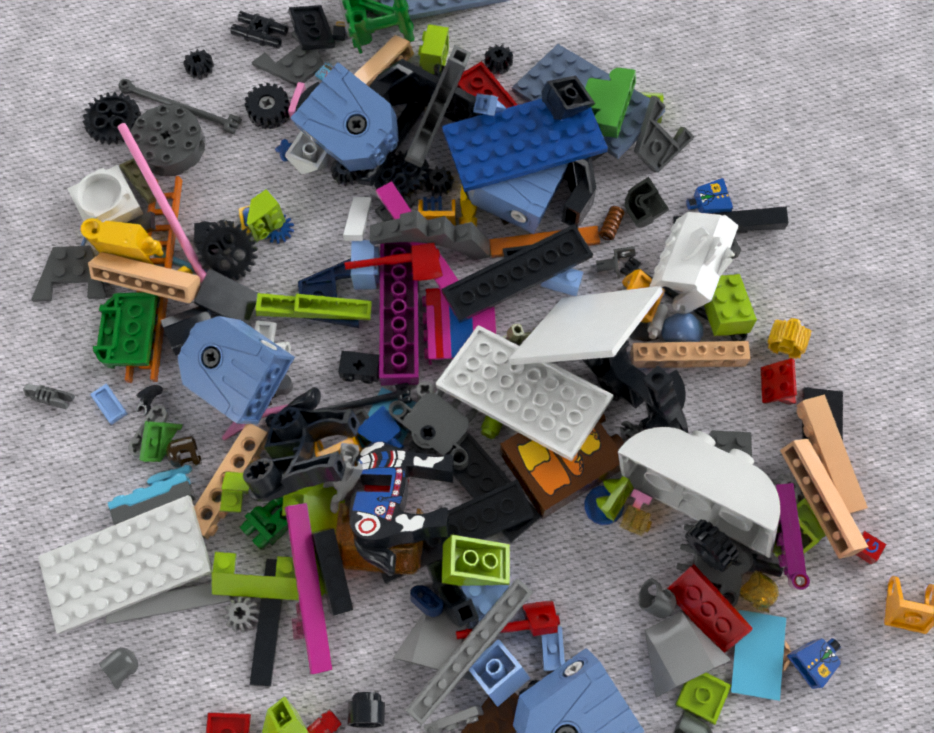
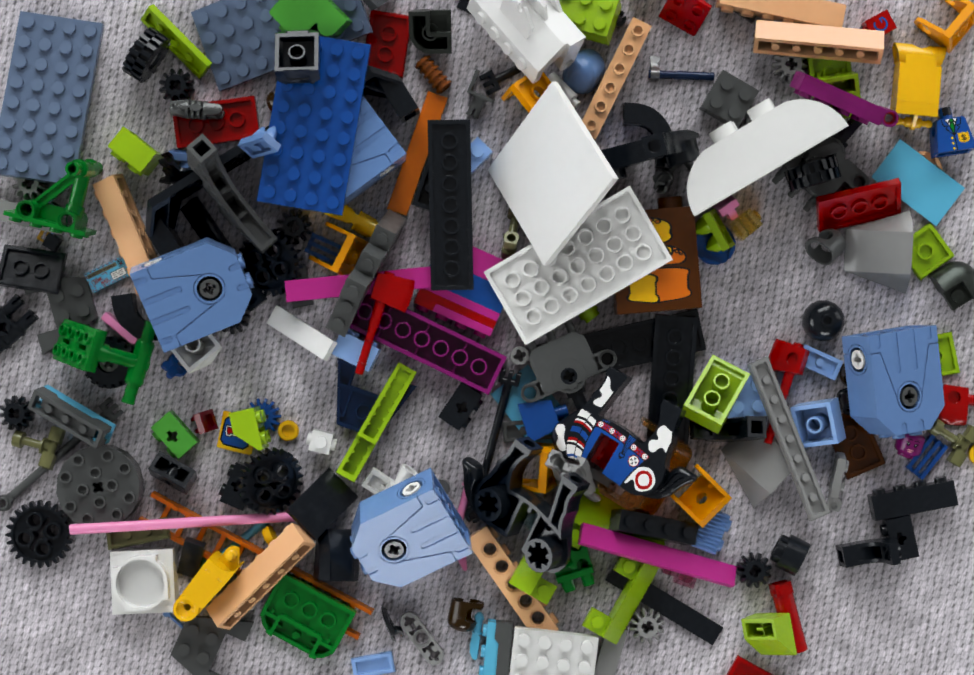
camera: 60 degrees left, 20 degrees up
(156, 438) = (438, 633): bright green wing -> none
(181, 91) = (46, 446): none -> olive bar
(201, 182) = (172, 472): none -> black brick
(212, 95) = (71, 416): none -> dark grey piece
(233, 172) = (172, 423): none -> bright green brick
(253, 187) = (204, 421): none -> dark red tile
(269, 75) = (86, 347): none -> green plate
(276, 251) = (288, 430): none -> yellow tile
(278, 276) = (321, 441): none -> white brick
(343, 687) = (759, 574): none -> black gear
(353, 628) = (710, 536): none -> medium blue brick
(369, 598) = (704, 486): none -> light orange hose
(426, 600) = (722, 451): dark blue plate -> none
(488, 75) = (196, 110): none -> dark grey hinge
(509, 24) = (146, 54): none -> black bush
(531, 44) = (180, 44): none -> lime plate
(591, 632) = (823, 320): none -> black cylinder
(615, 181) = (388, 41): none -> red tile
(714, 387) = (656, 74): none -> dark blue piece
(760, 591) = (869, 147): clear yellow helmet -> none
(842, 605) = (916, 83): none -> yellow piece

